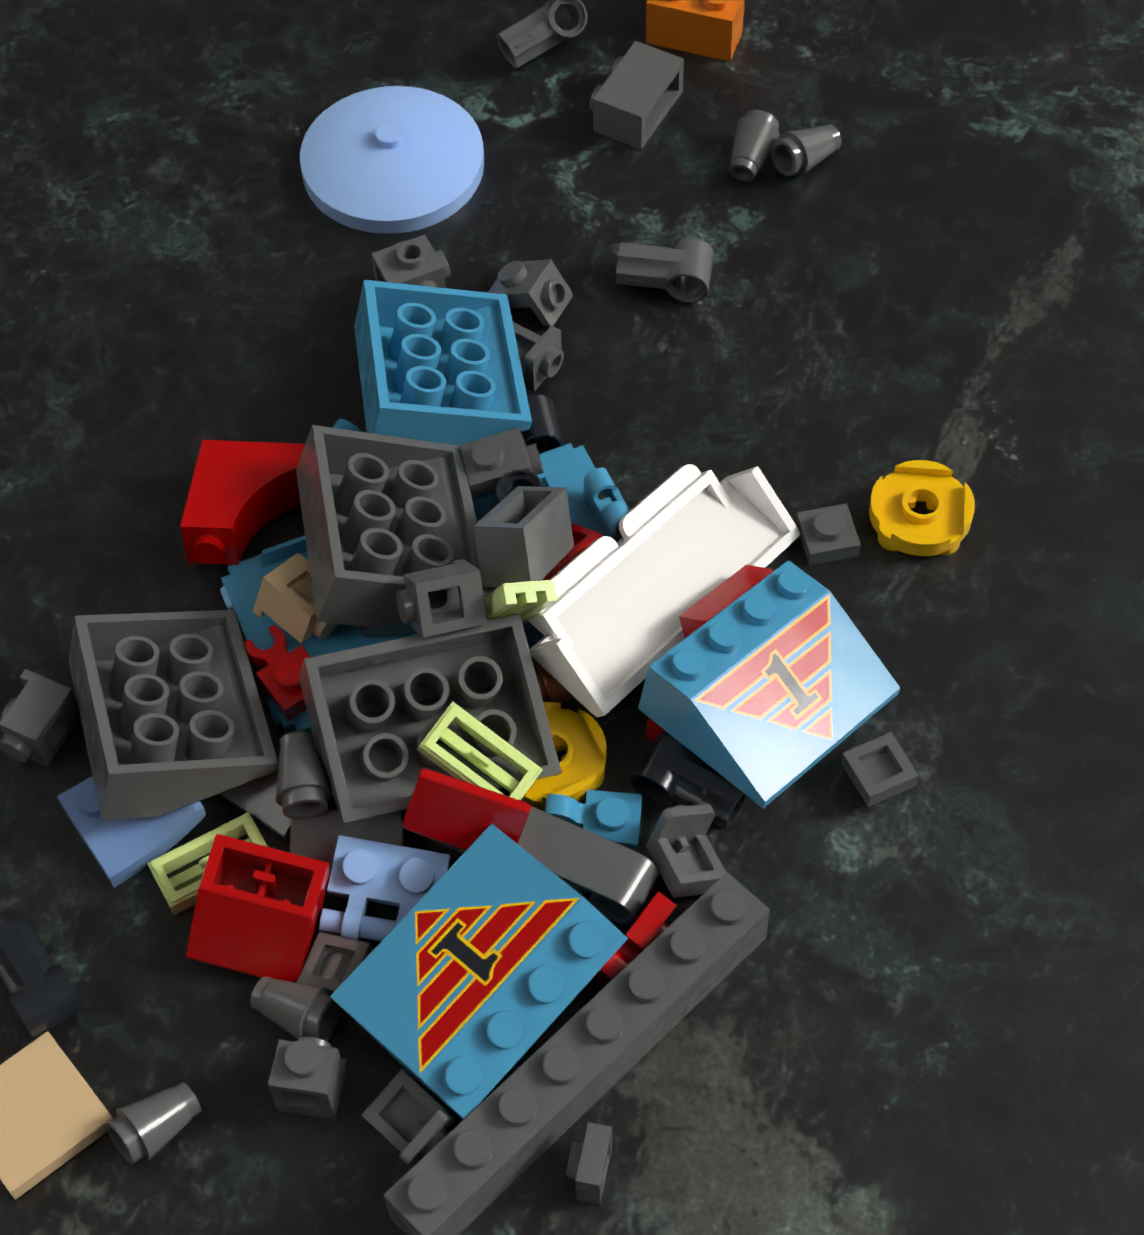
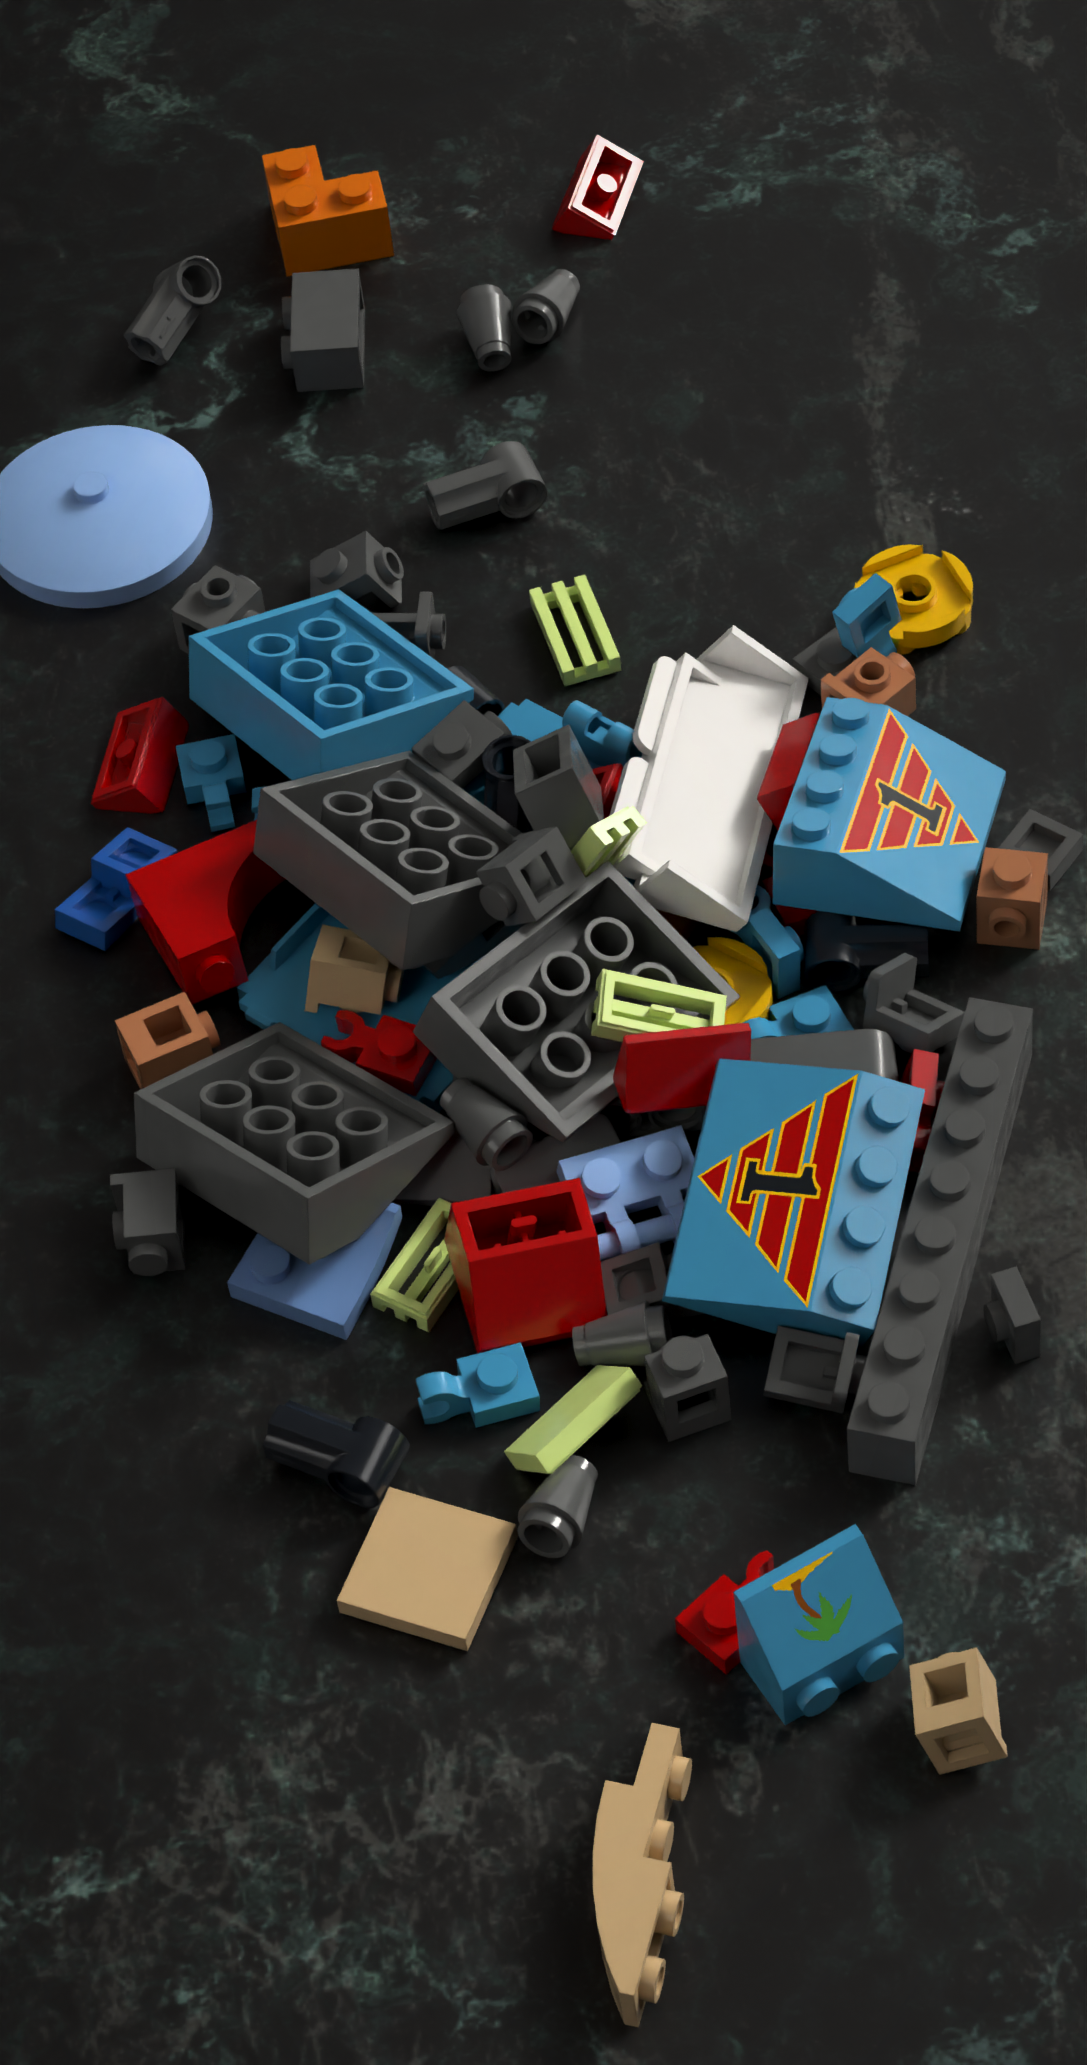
camera: 25 degrees left, 5 degrees down
(146, 582) = (165, 1038): none -> nougat brick
(177, 991) = (488, 1385): none -> dark azure plate
(178, 453) = (104, 904): none -> blue slope
(211, 1055) = (573, 1419): none -> yellowish green tile
(293, 355) = (141, 758): none -> red slope
(328, 391) = (212, 774): none -> dark azure plate
(623, 745) = (775, 944): none -> dark azure plate
(663, 379) = (563, 598): none -> yellowish green tile
(827, 800) = (1012, 898): none -> nougat brick
(839, 567) = (875, 680): none -> nougat brick
(862, 511) = (867, 617): none -> dark azure plate
(905, 79) = (598, 191): none -> red slope

